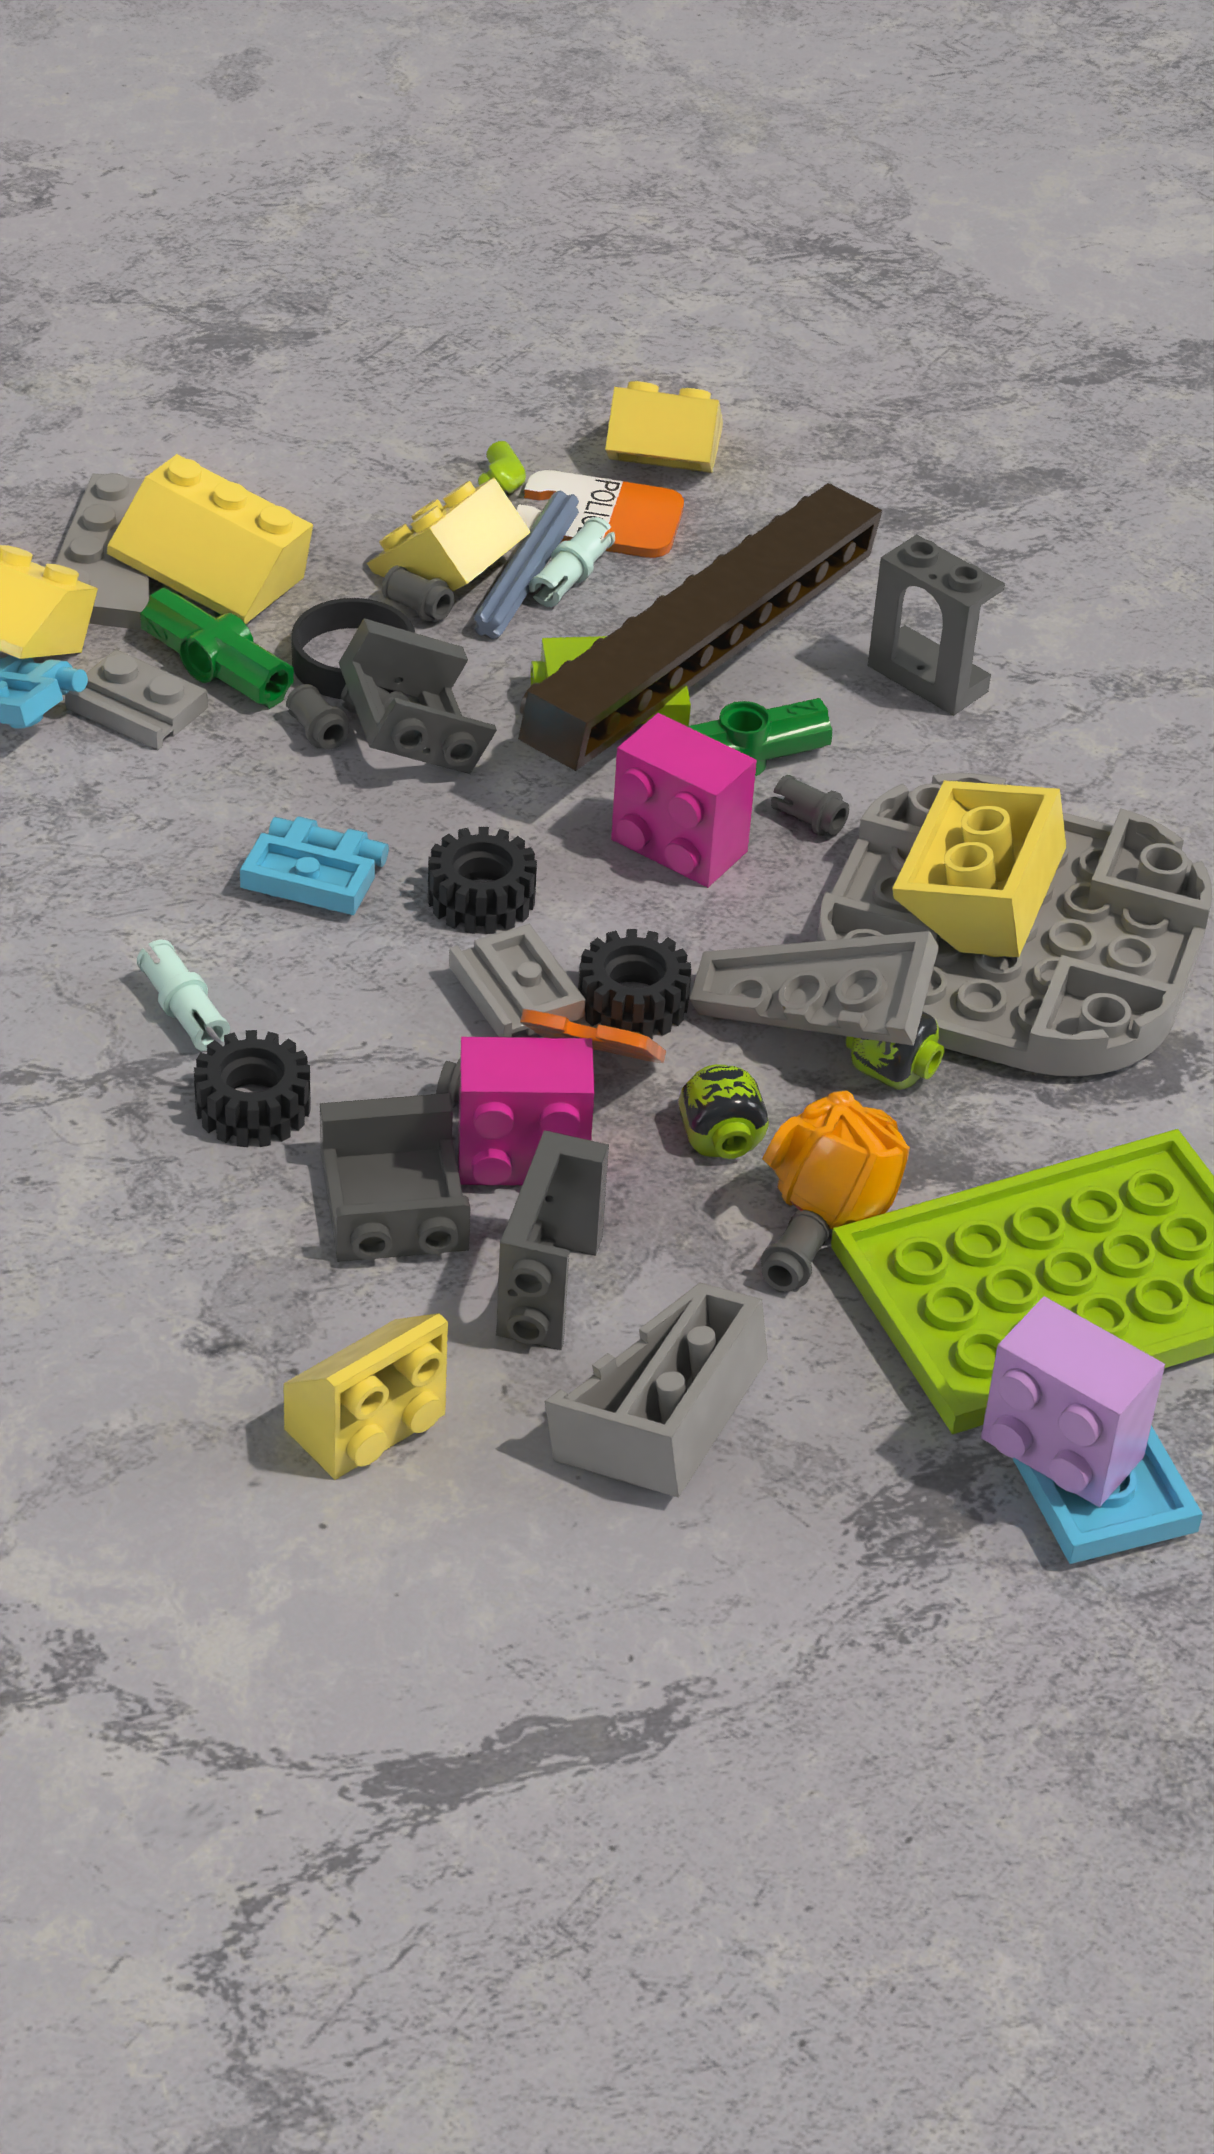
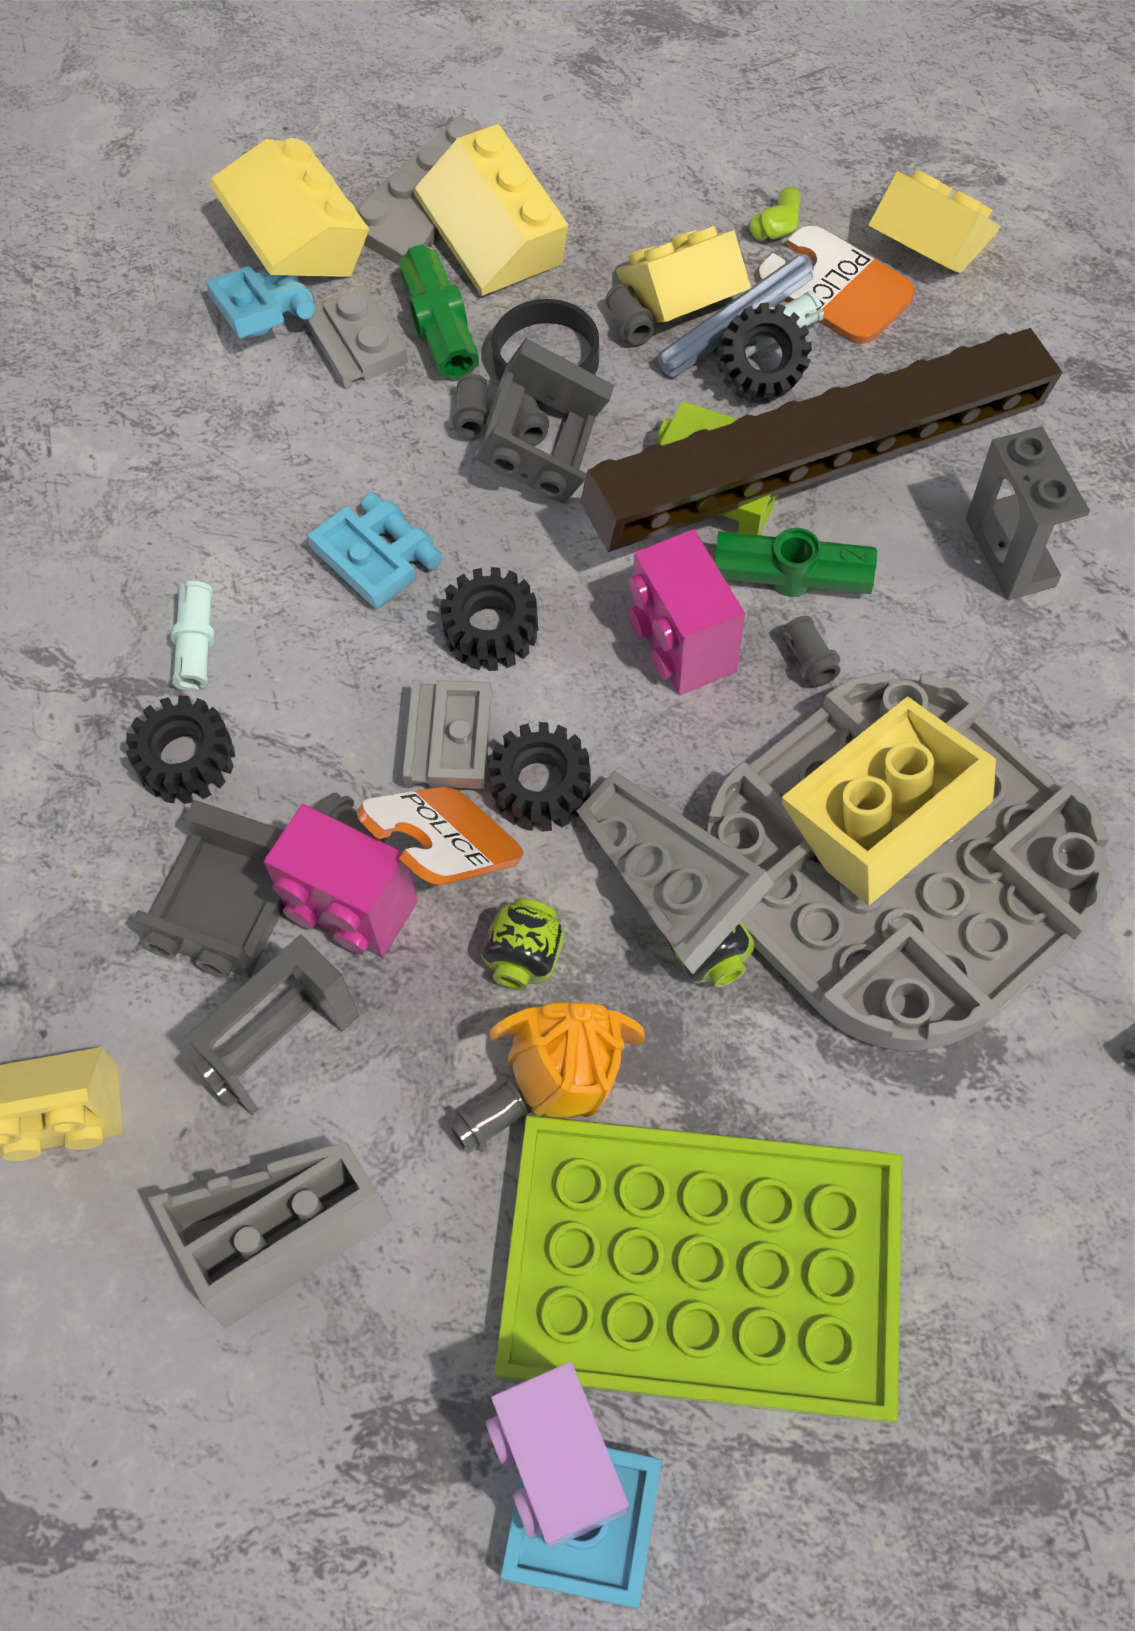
camera: 35 degrees right, 20 degrees up
(602, 559) = (779, 327): none -> black tyre

